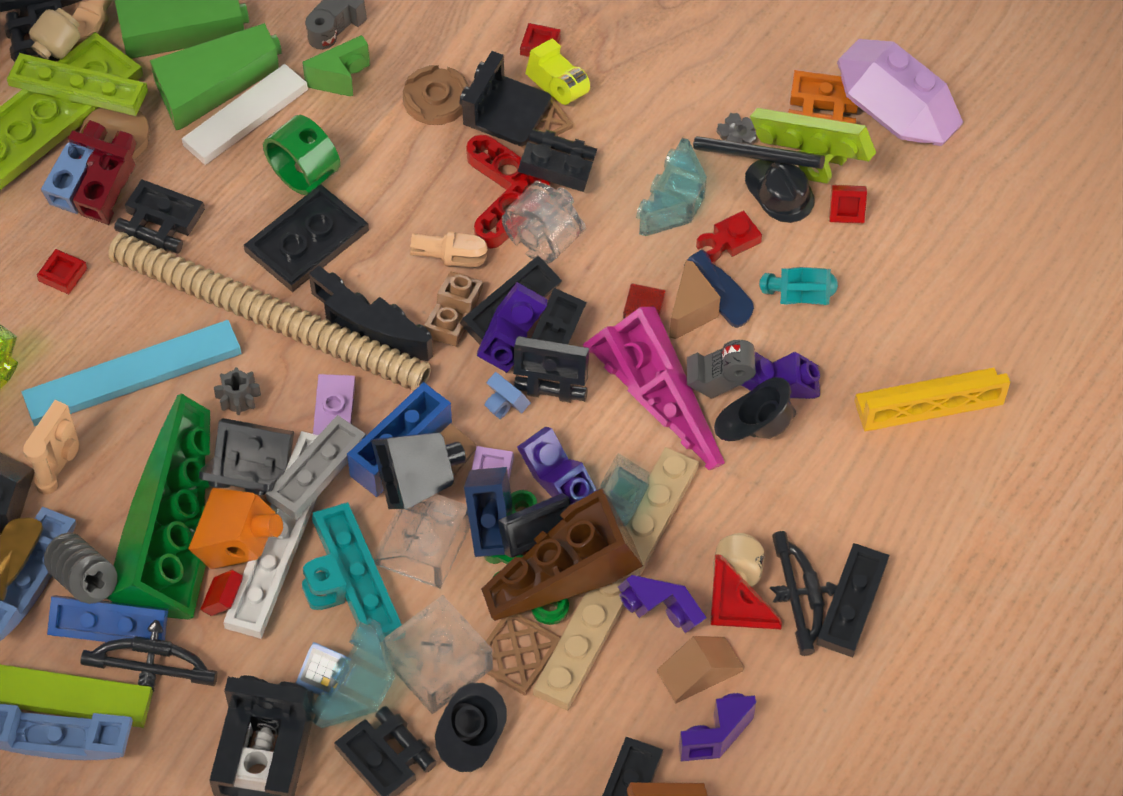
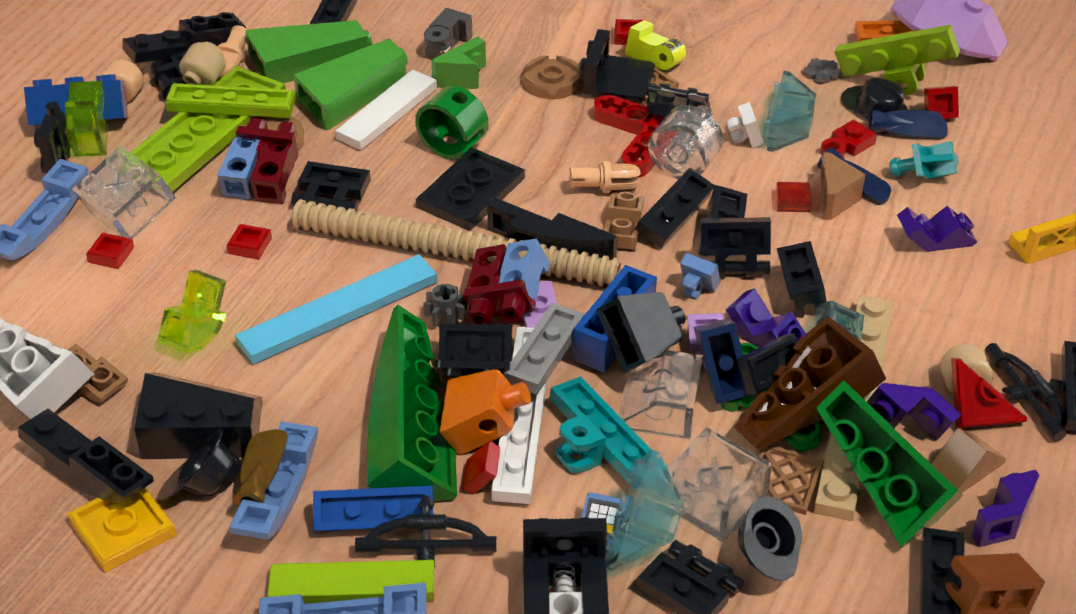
camera: 10 degrees left, 15 degrees down
(51, 446) = (281, 366): light nougat plate -> none
(80, 568) = (337, 462): dark grey piece -> none
(300, 376) = (507, 284): none -> dark red hips
(511, 319) = (683, 220): dark purple slope -> none
(611, 417) = (801, 276): none -> black hinge
(614, 668) = (896, 475): none -> green wedge
(622, 202) = (747, 126): none -> white tile
(648, 365) = (835, 251): dark pink wedge -> none
(721, 369) = (890, 225): dark grey leg -> none
(759, 152) = (857, 74): black bar -> none
(759, 414) = (935, 255): black piece -> none
(805, 225) = (909, 123): none -> dark blue piece

